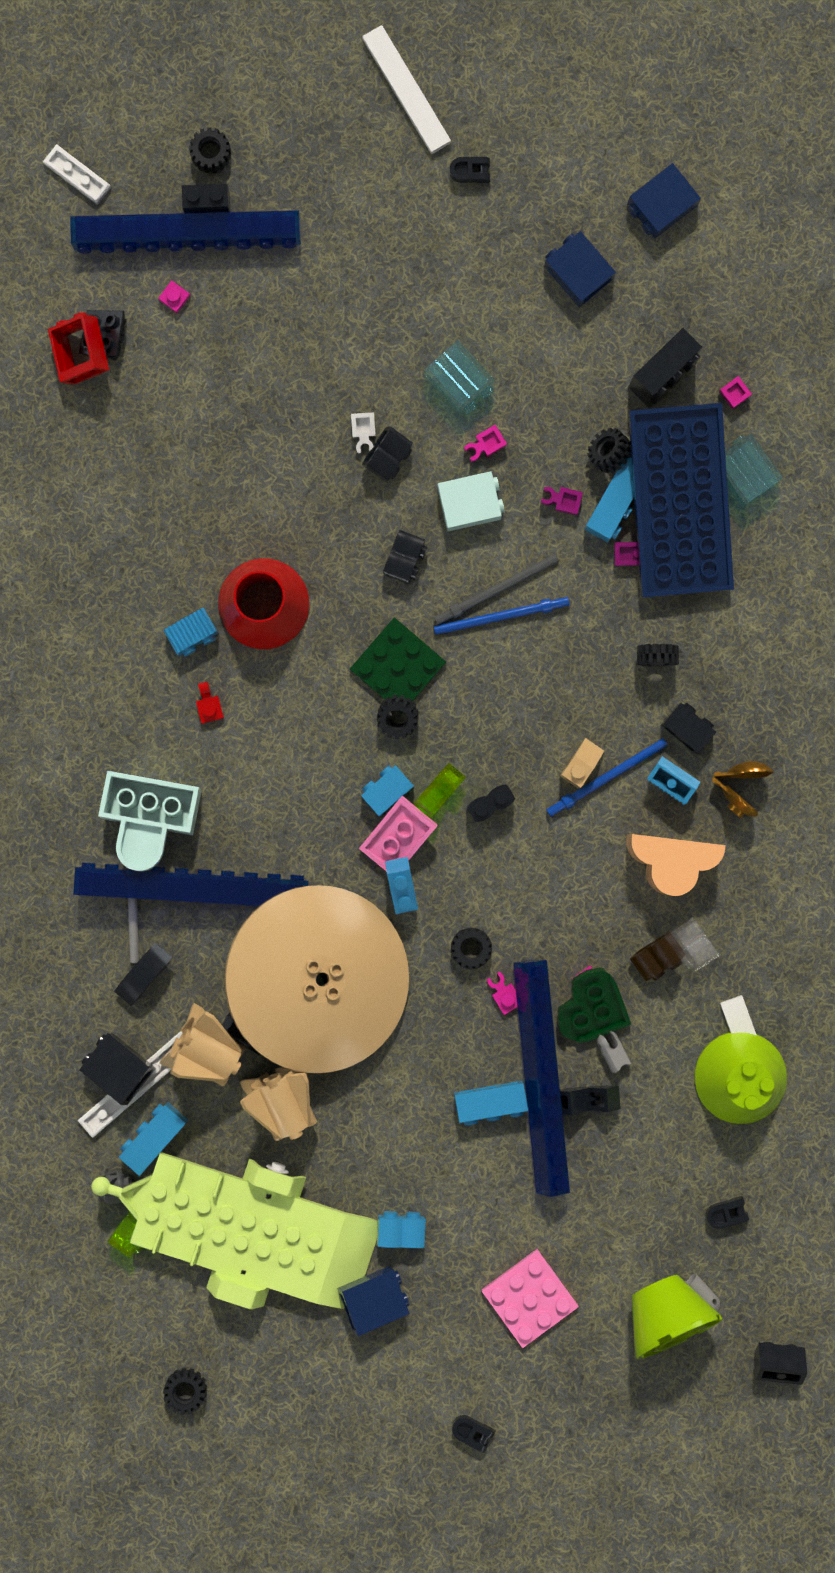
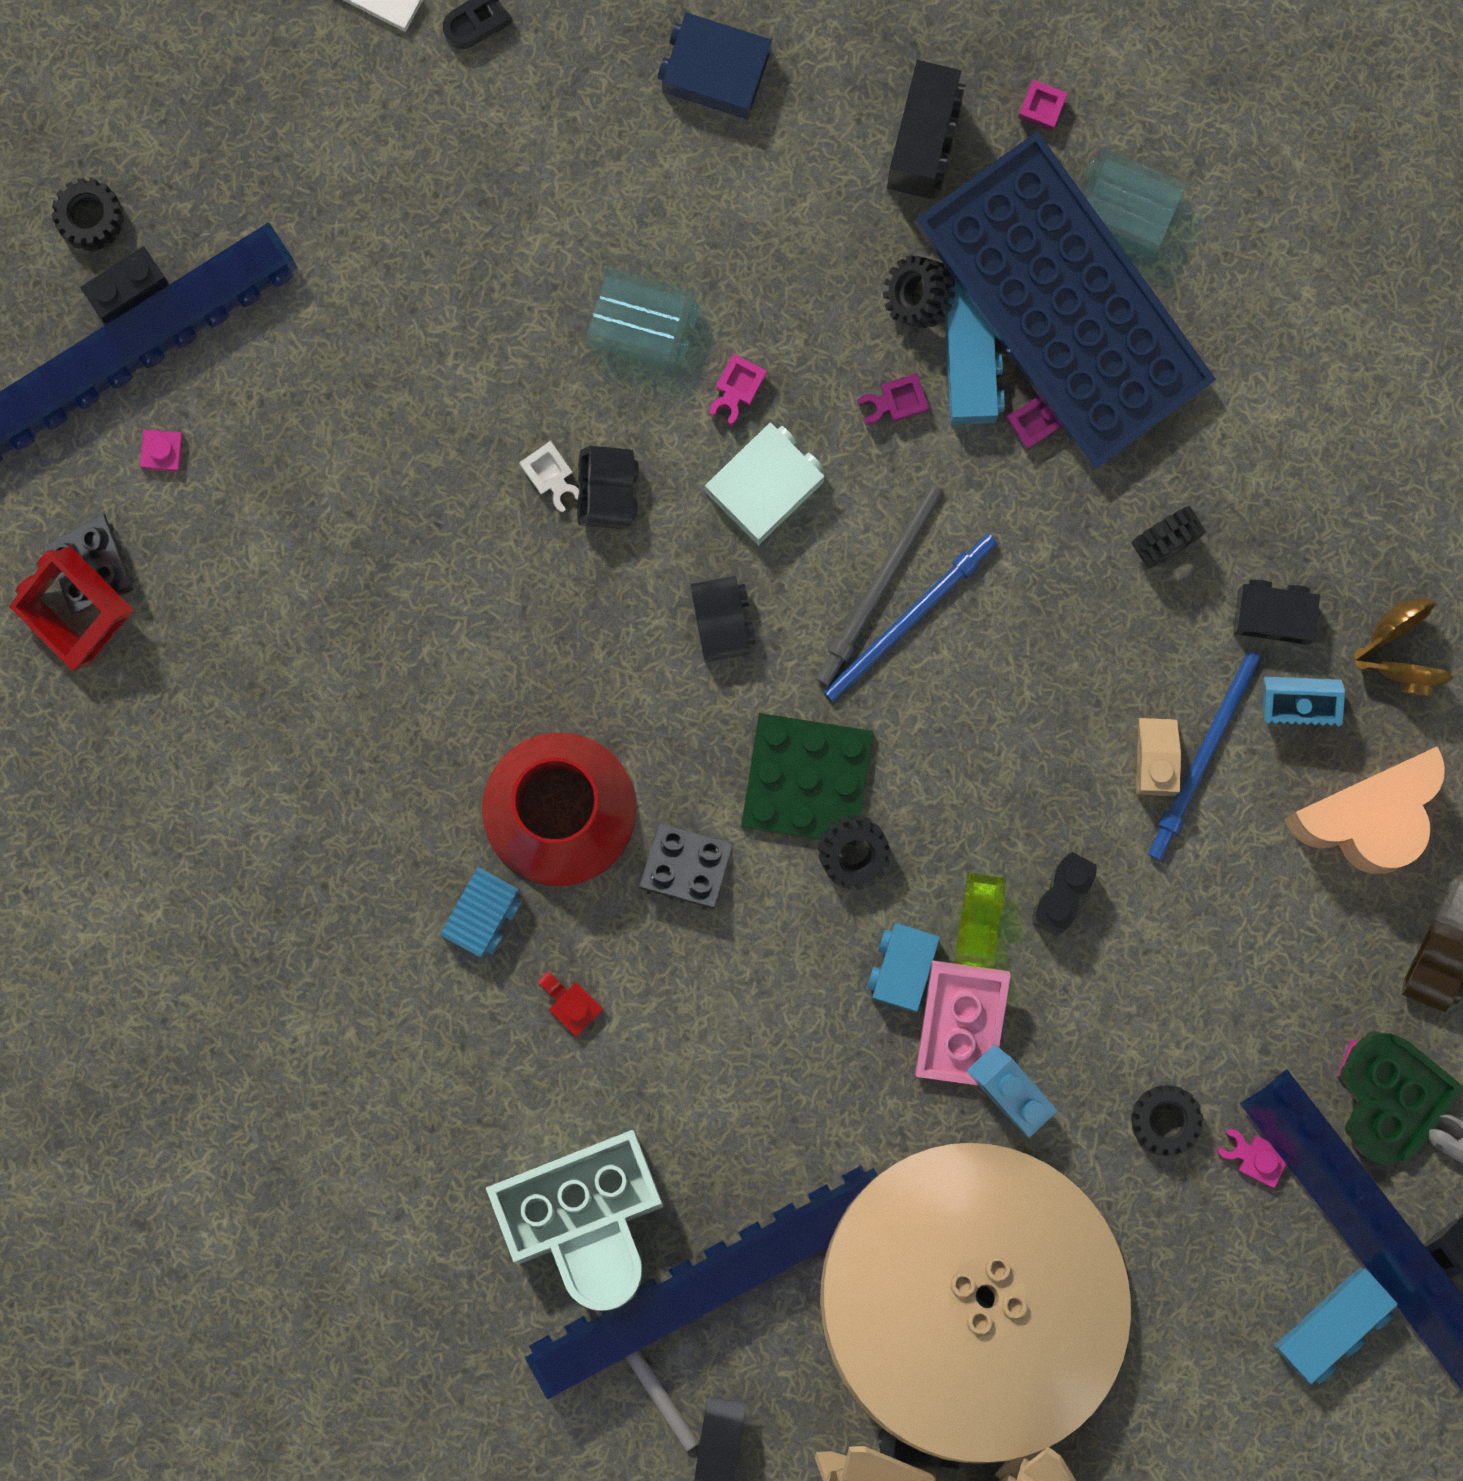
camera: 30 degrees left, 5 degrees down
(309, 672) = (686, 866): none -> hinge

